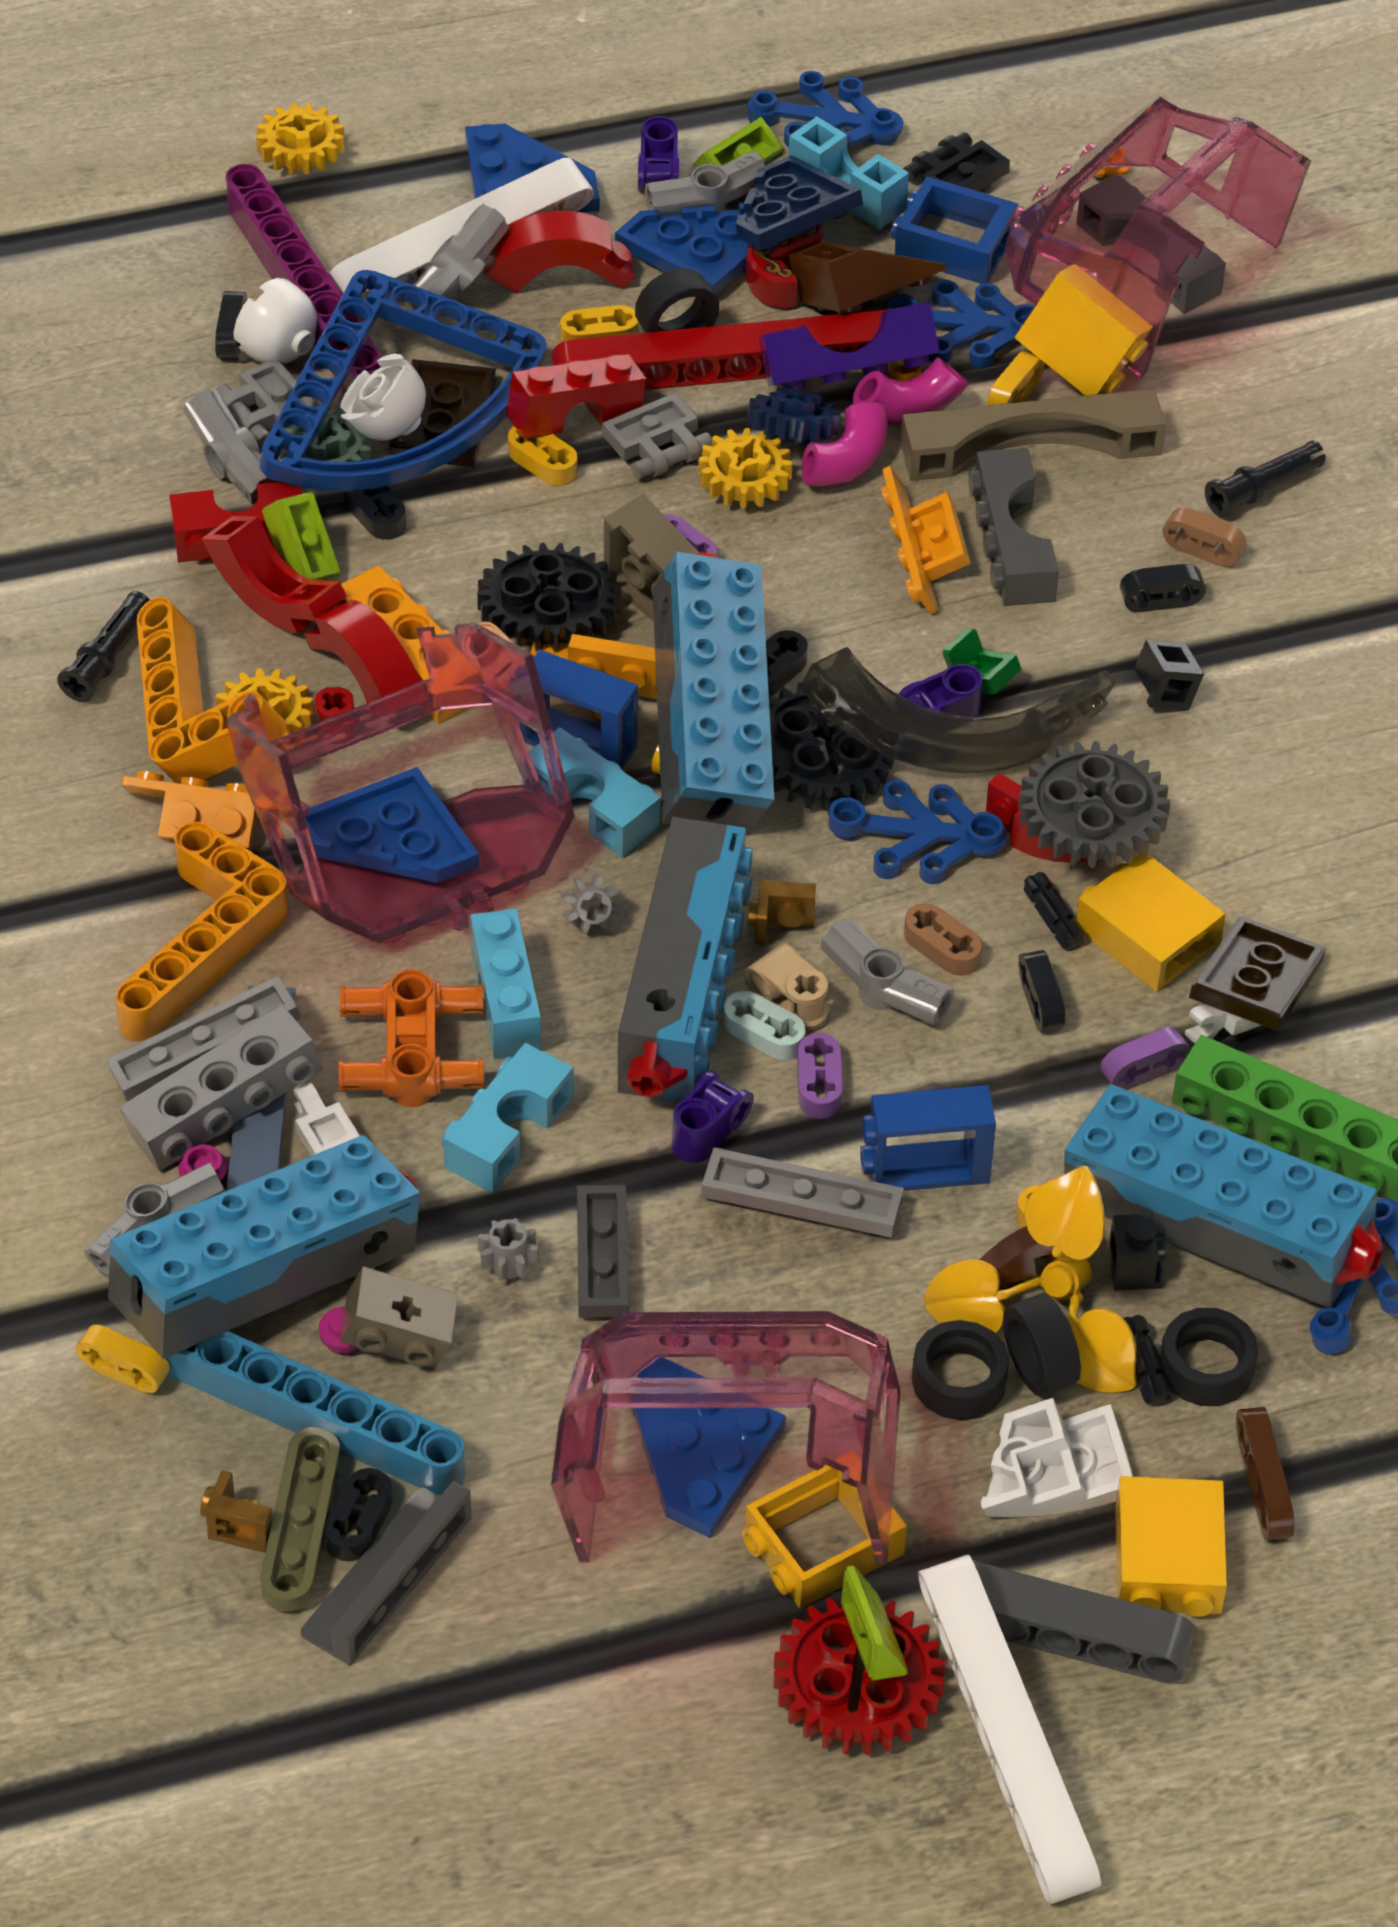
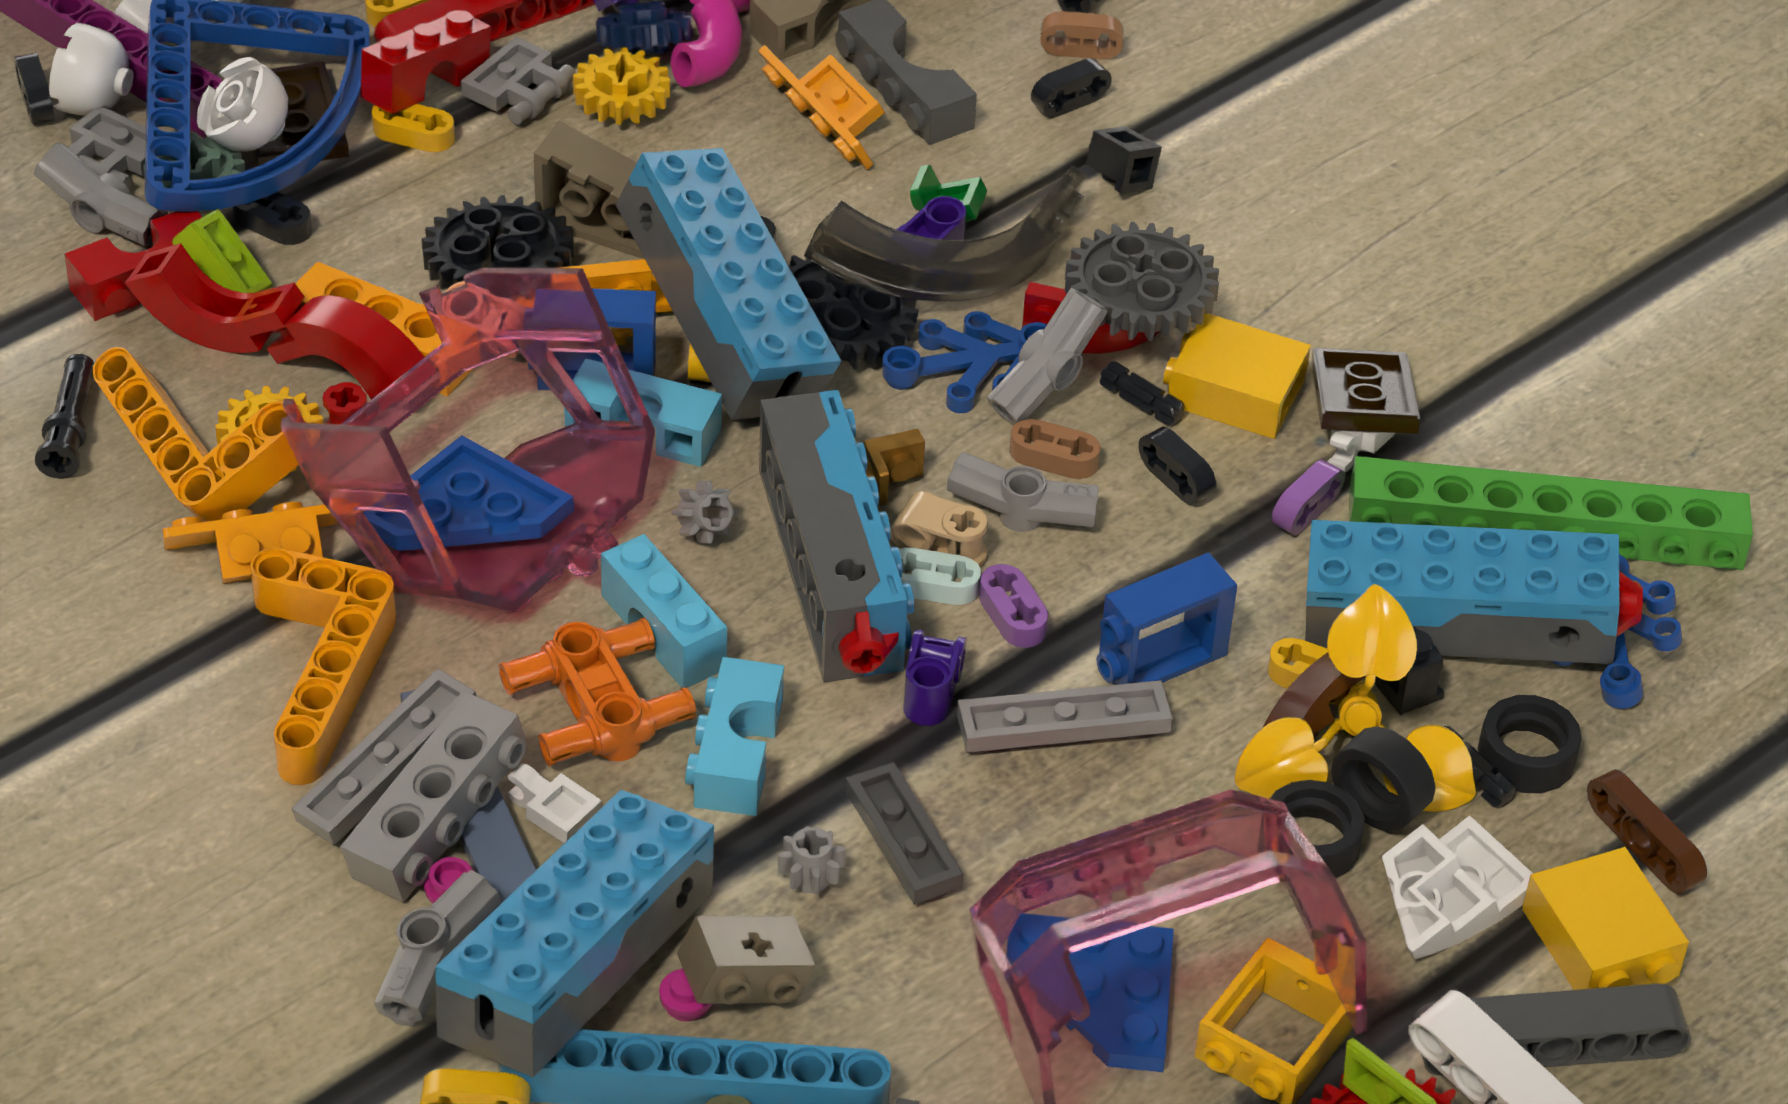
camera: 25 degrees left, 5 degrees down
(972, 852) = (1048, 358): none -> light grey piece

